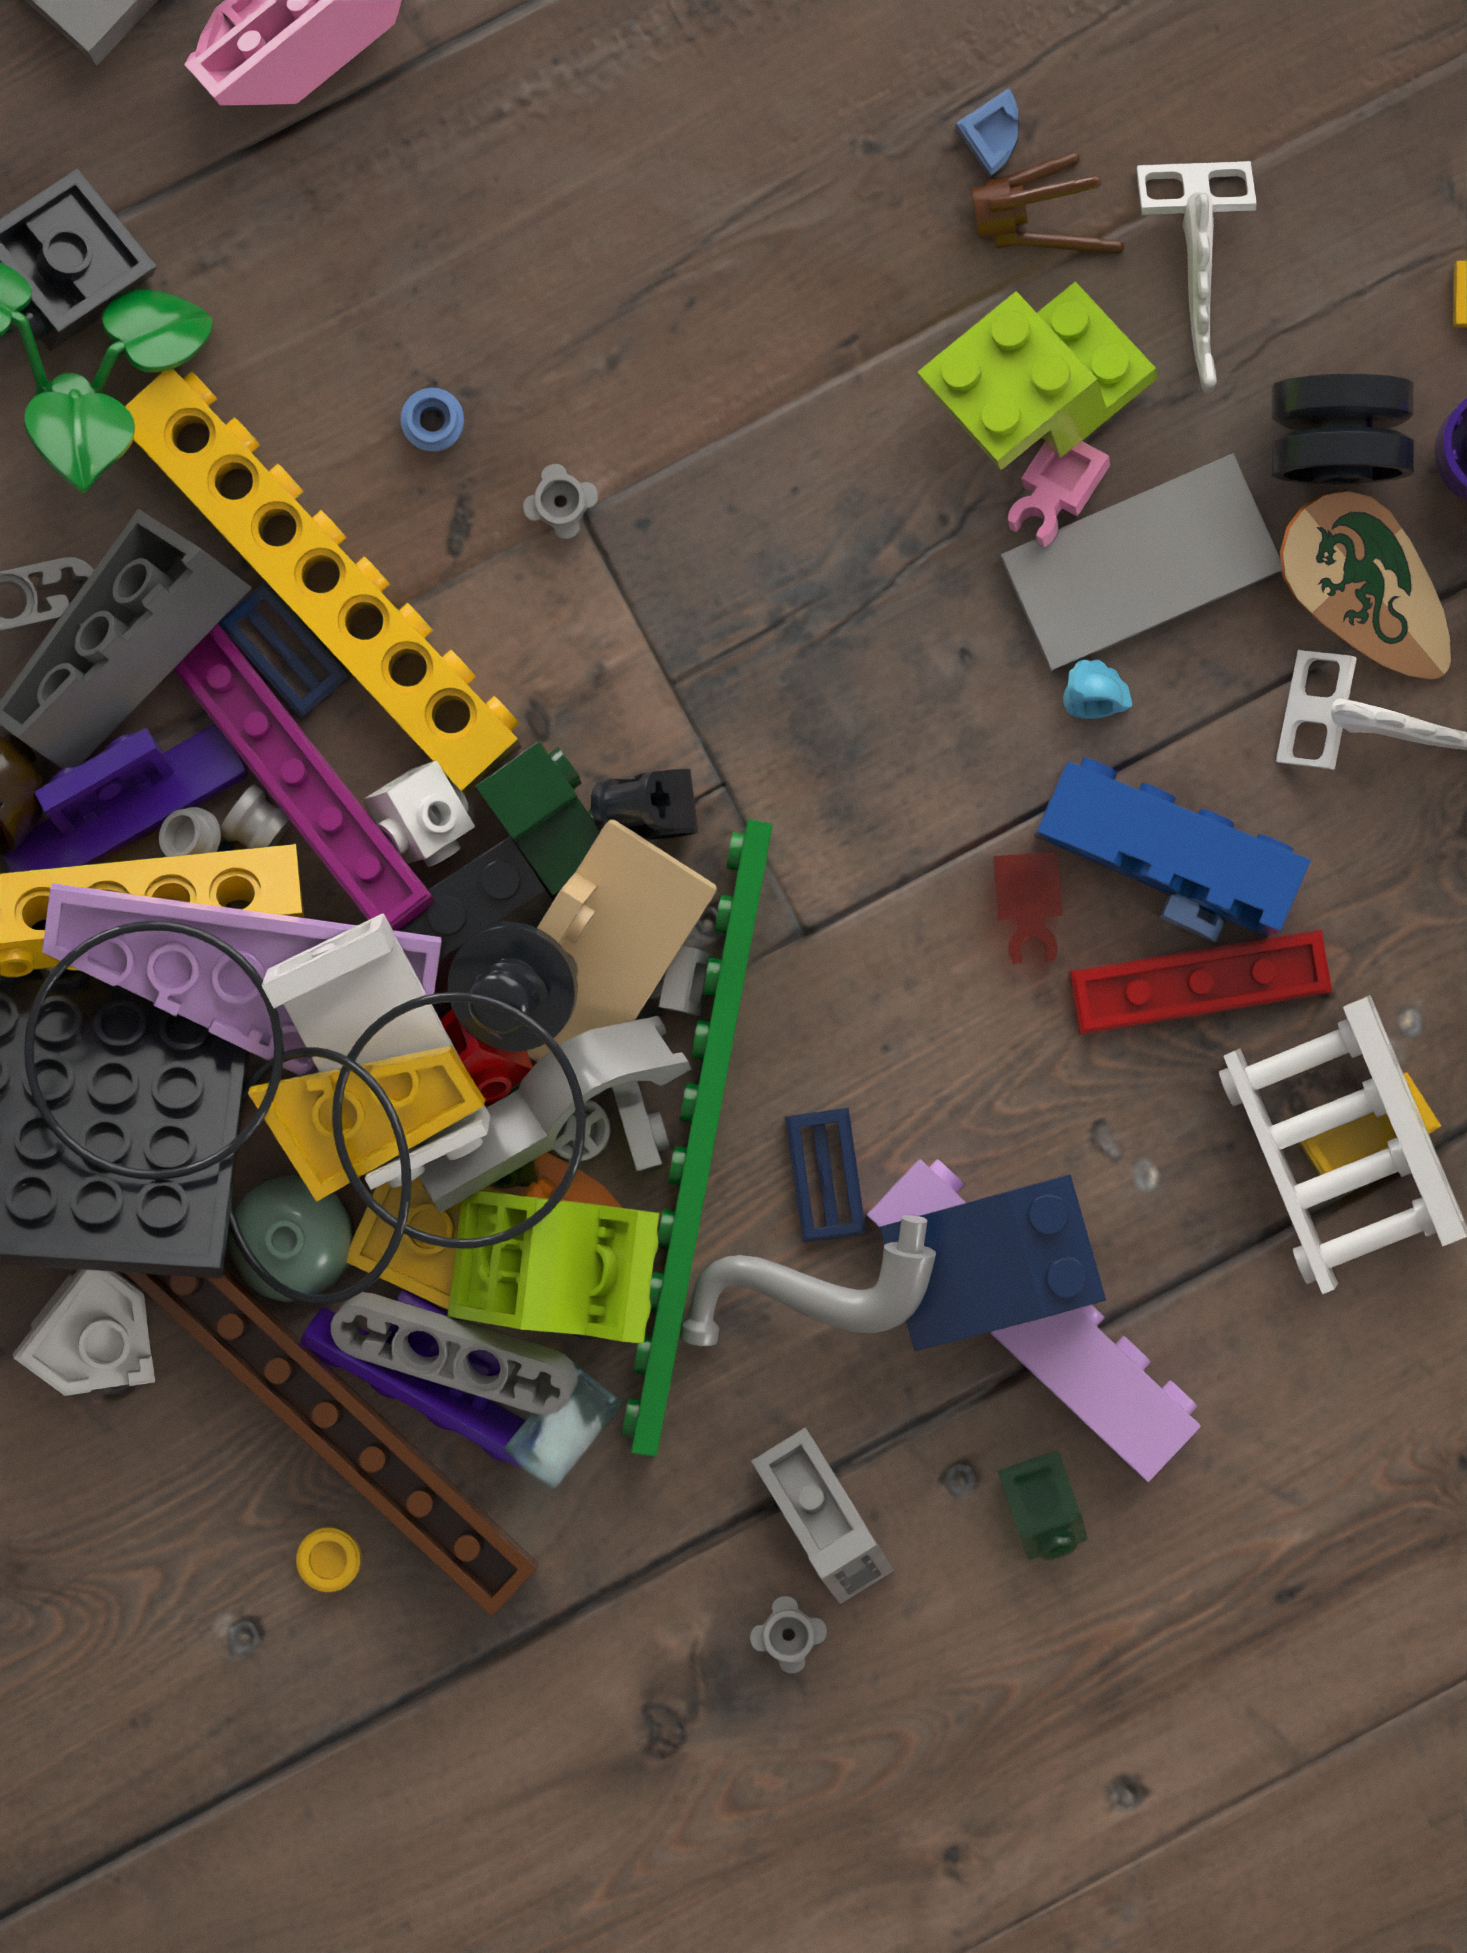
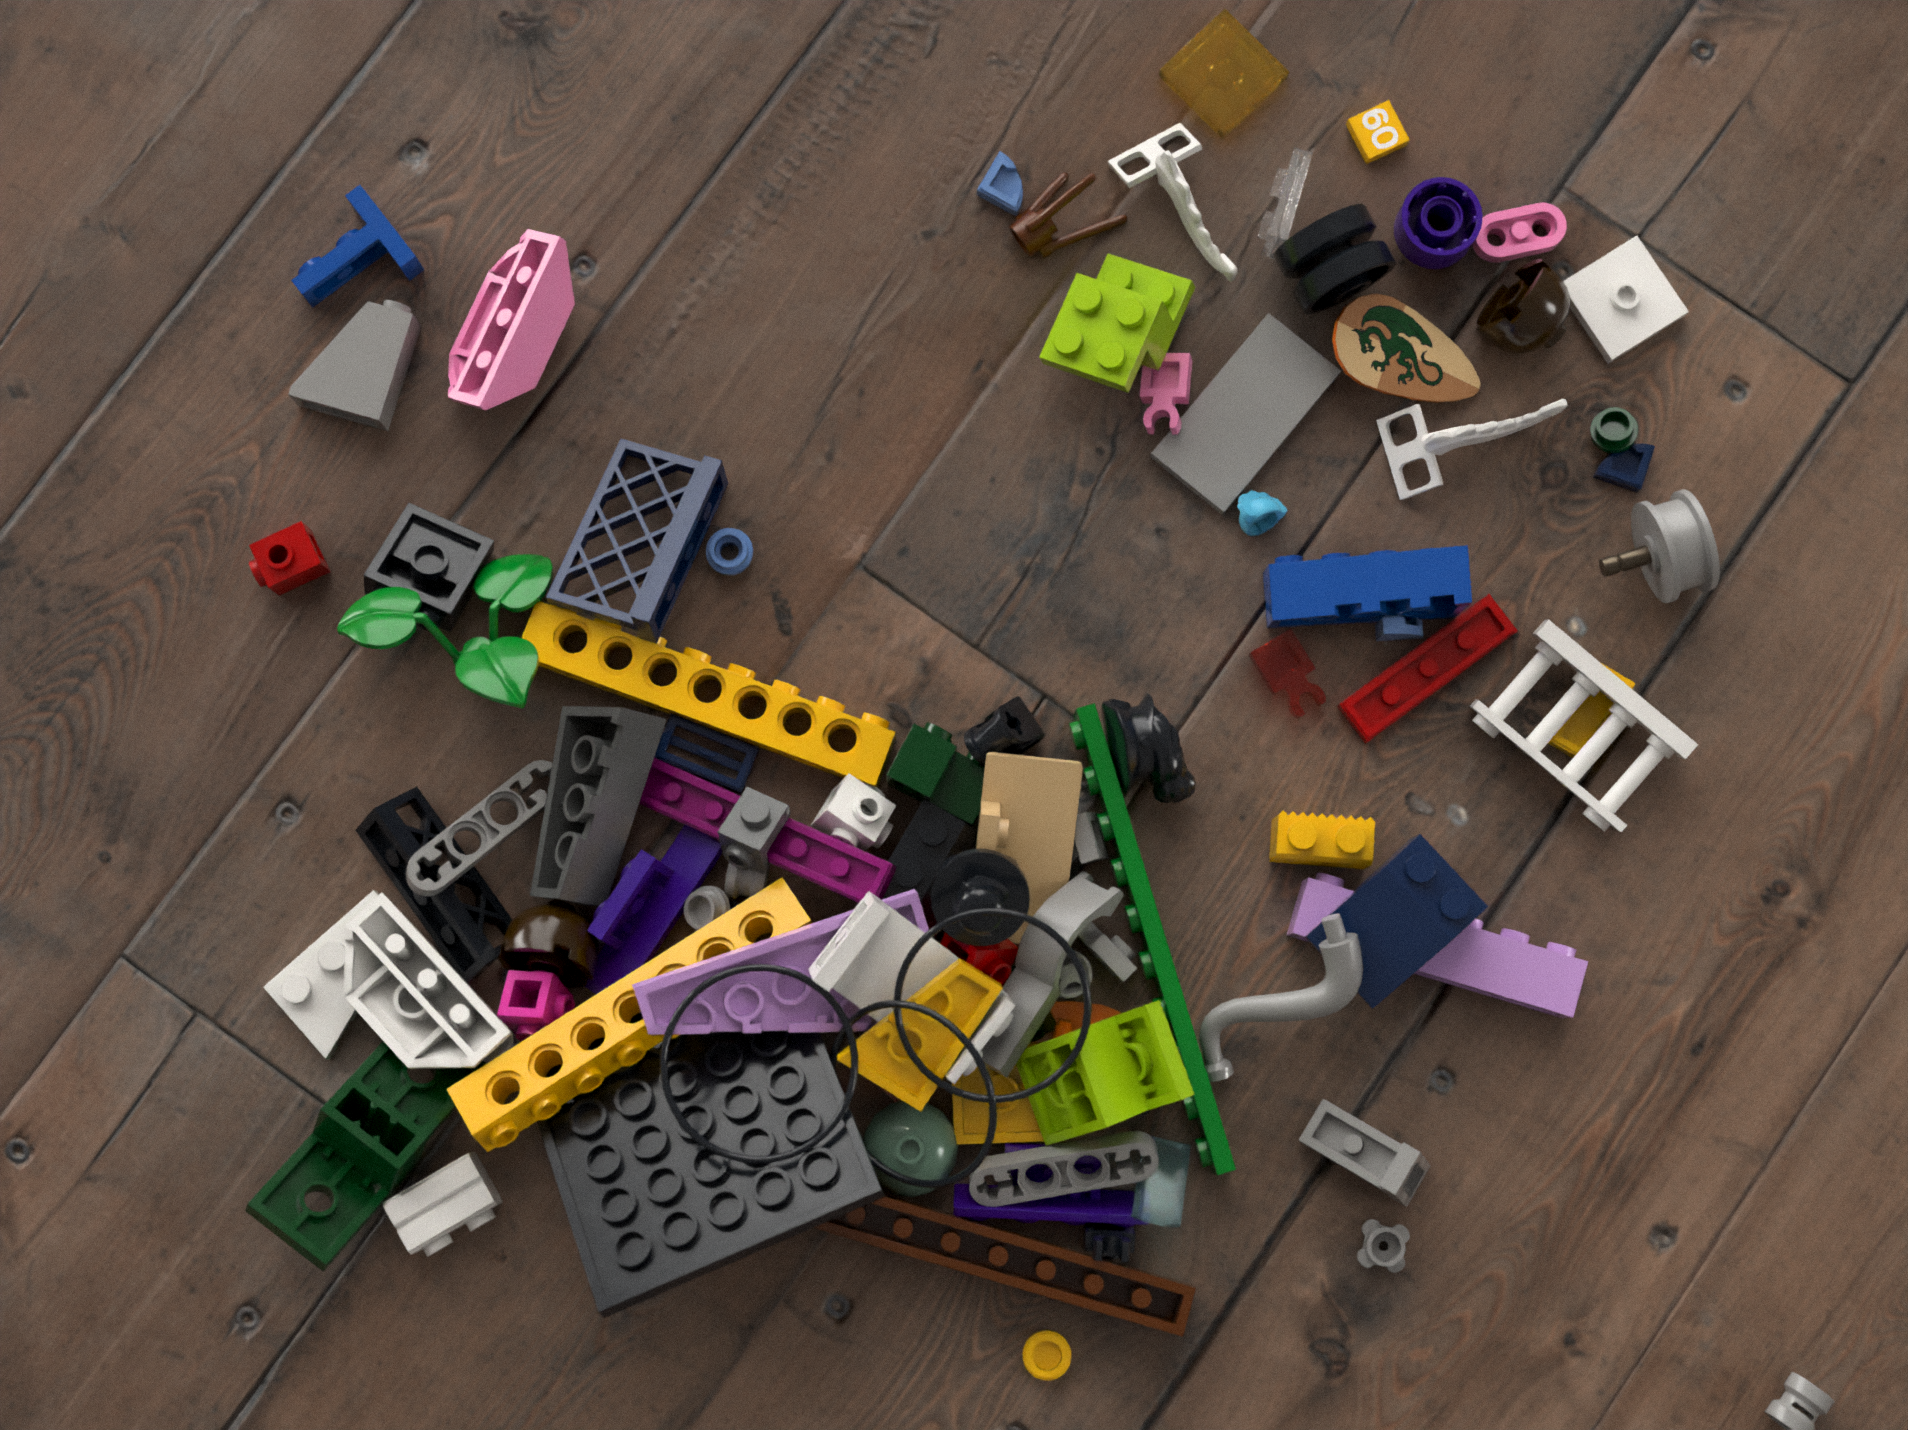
camera: 30 degrees left, 5 degrees down
(90, 1335) = (807, 1284): white plate -> none
(287, 770) = (752, 829): none -> bracket
(376, 376) = (678, 540): none -> fence
(465, 1464) = (1109, 1241): none -> black plate
(558, 483) = (835, 551): light grey plate -> none
(806, 909) = (1146, 748): none -> black piece
(818, 1121) = (1231, 932): dark blue tile -> none
(962, 1124) = (1322, 840): none -> yellow brick
(1043, 1506) = (1509, 1070): clear green bracket -> none
(1335, 126) = (1223, 73): none -> clear yellow tile
(1336, 310) = (1288, 188): none -> clear plate

